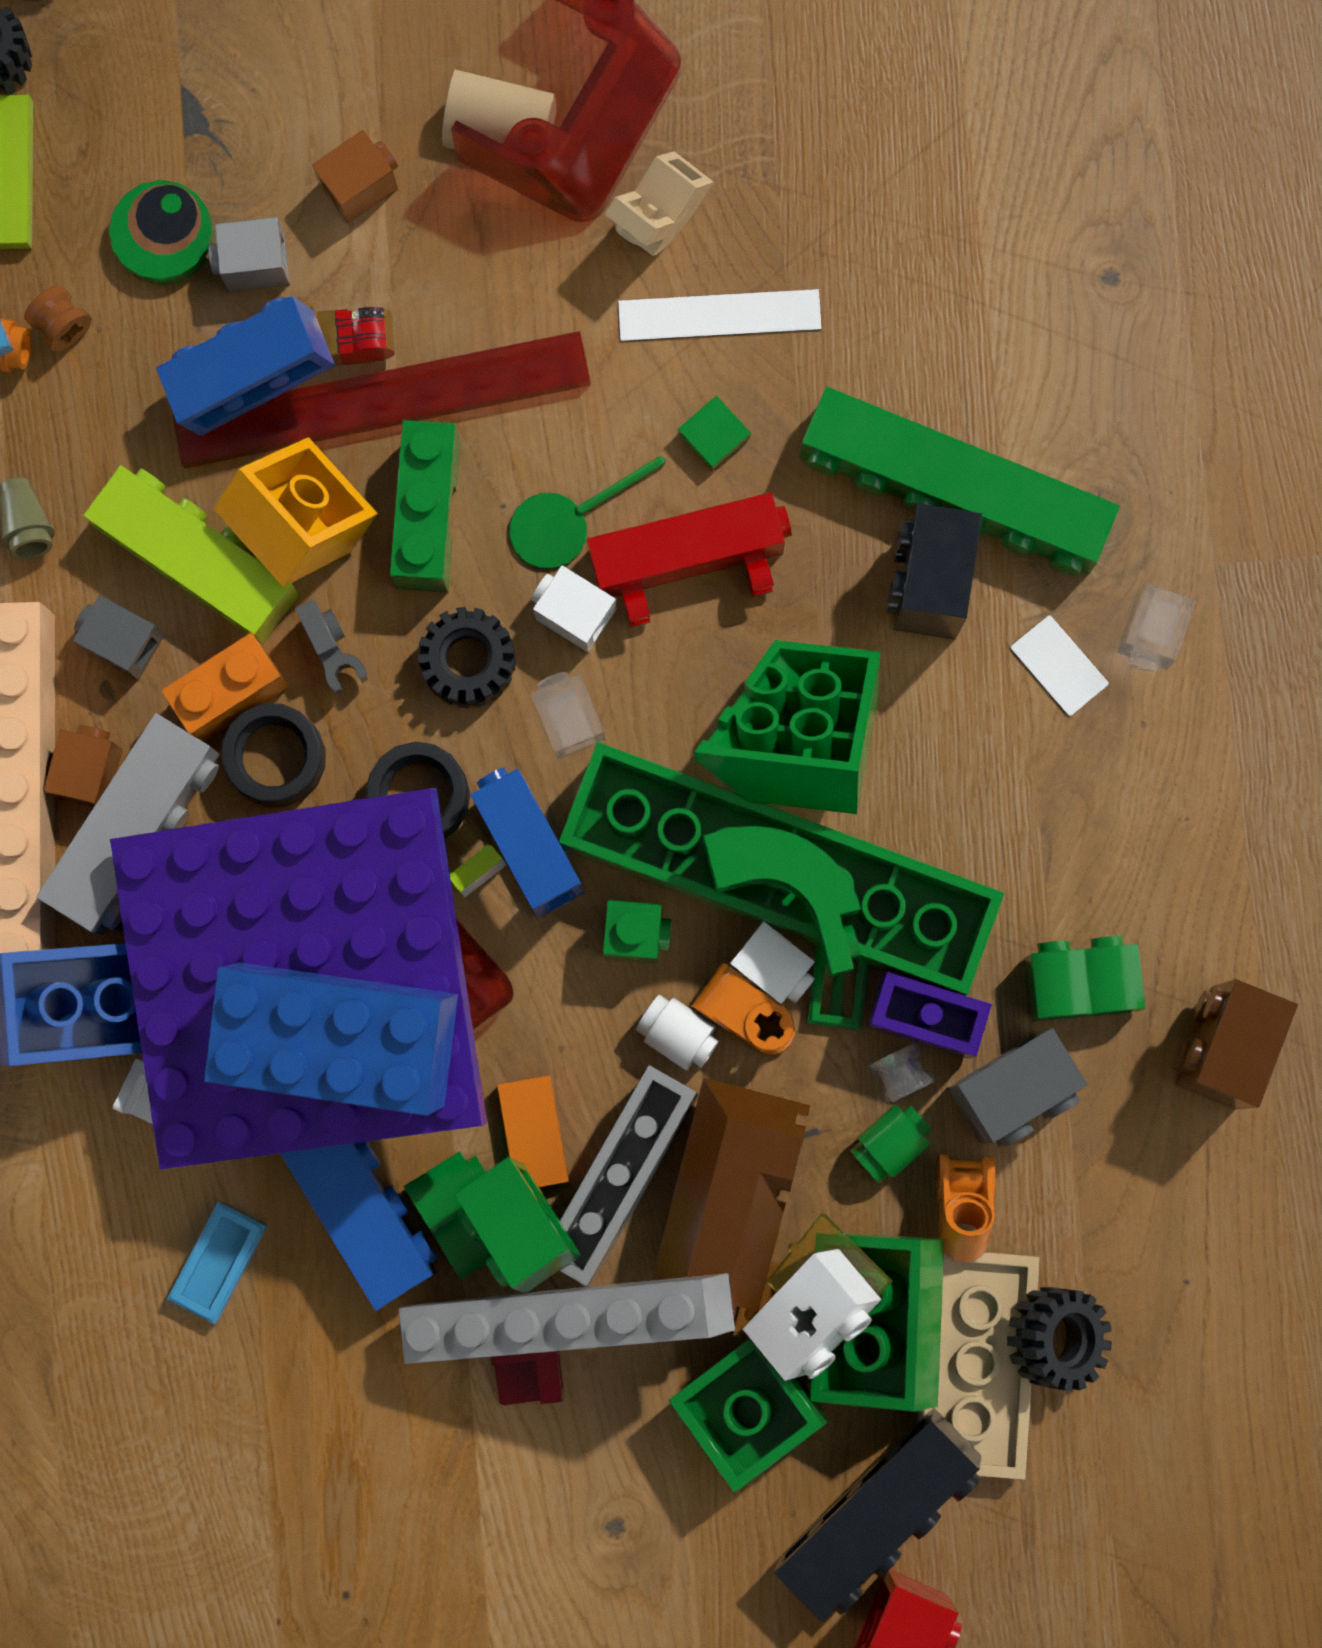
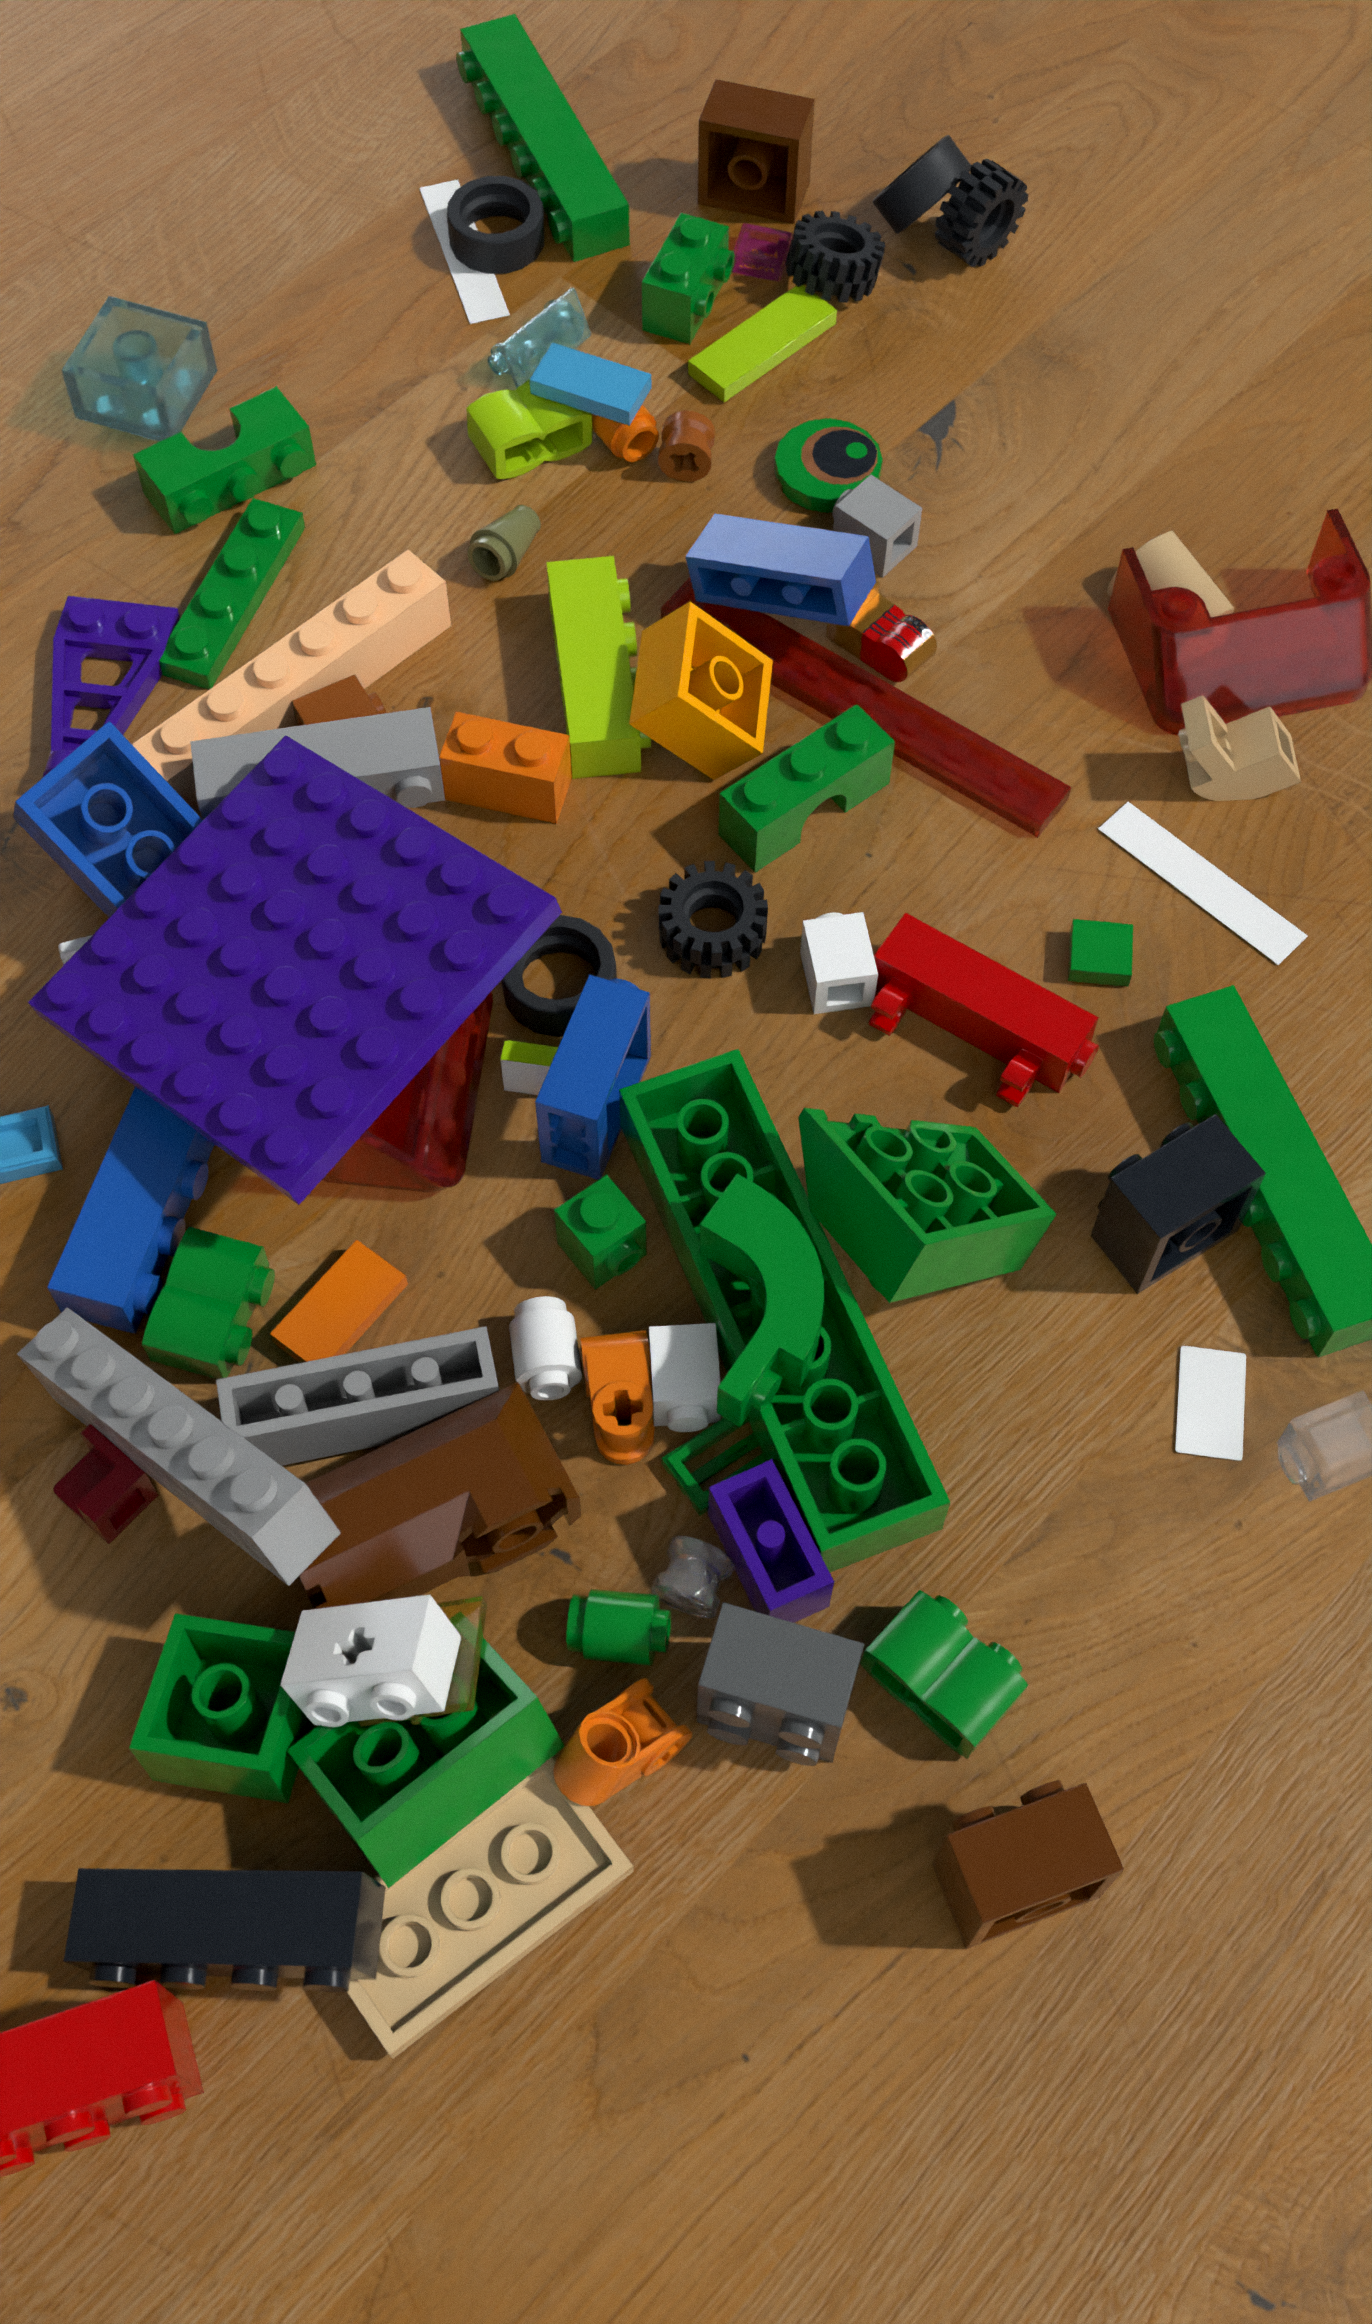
camera: 45 degrees right, 20 degrees down
(117, 636) = (474, 668): dark grey brick -> none
(244, 727) = (496, 810): black tyre -> none
(324, 633) = (620, 803): dark grey plate -> none
(331, 1038) = (258, 998): blue brick -> none
(356, 175) = (1016, 543): dark orange brick -> none
(515, 1226) = (228, 1327): green brick -> none
(552, 529) = (889, 891): green piece -> none
(567, 714) = (742, 1018): clear brick -> none
(1082, 1344) = (600, 1980): black tyre -> none

